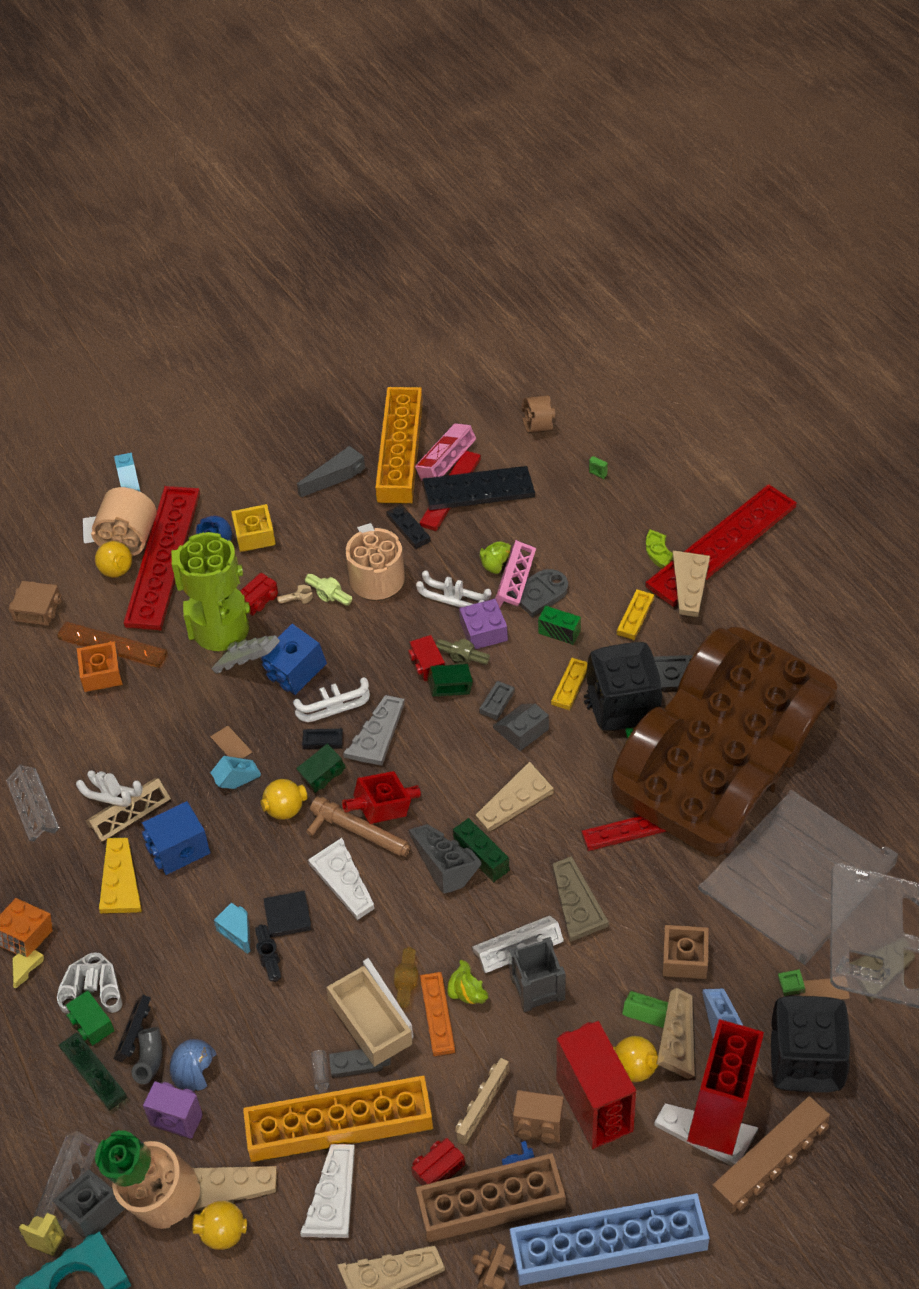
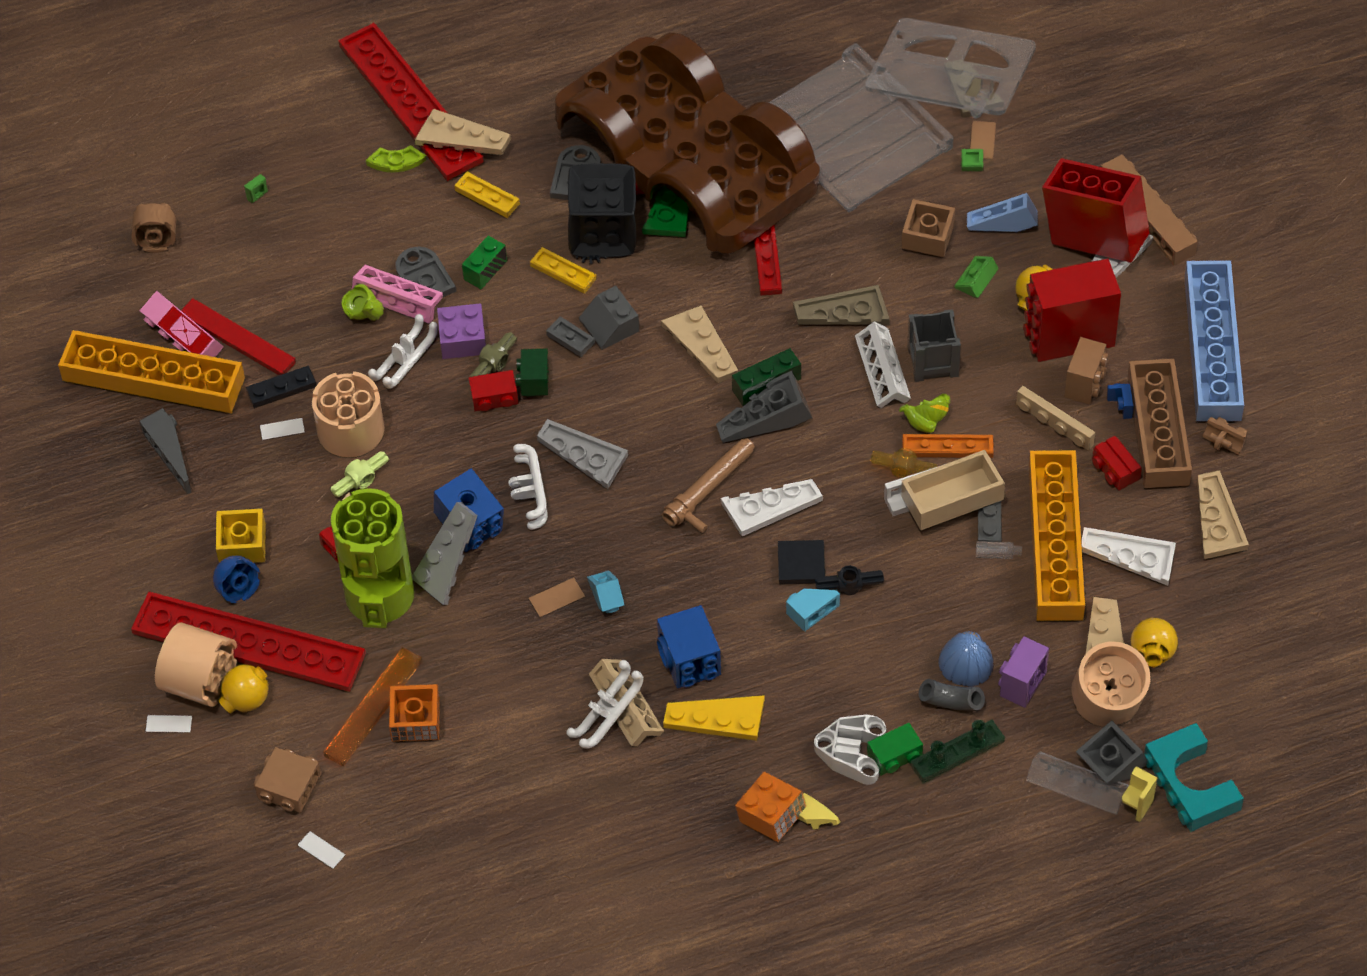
camera: 80 degrees left, 5 degrees up
(35, 798) = (591, 790): clear fence -> none
(123, 1158) = (1096, 695): green brick -> none
(126, 1046) = (915, 710): black plate -> none
(127, 471) = (92, 670): medium azure slope -> none
(283, 799) = (656, 545): yellow brick -> none
(320, 737) = (575, 506): black tile -> none
(321, 768) = (624, 505): dark green brick -> none
(381, 797) = (683, 451): red brick -> none
(478, 487) = (247, 307): black plate -> none
(677, 1039) = (1019, 253): tan wing -> none
(810, 1044) = (1051, 133): black piece -> none

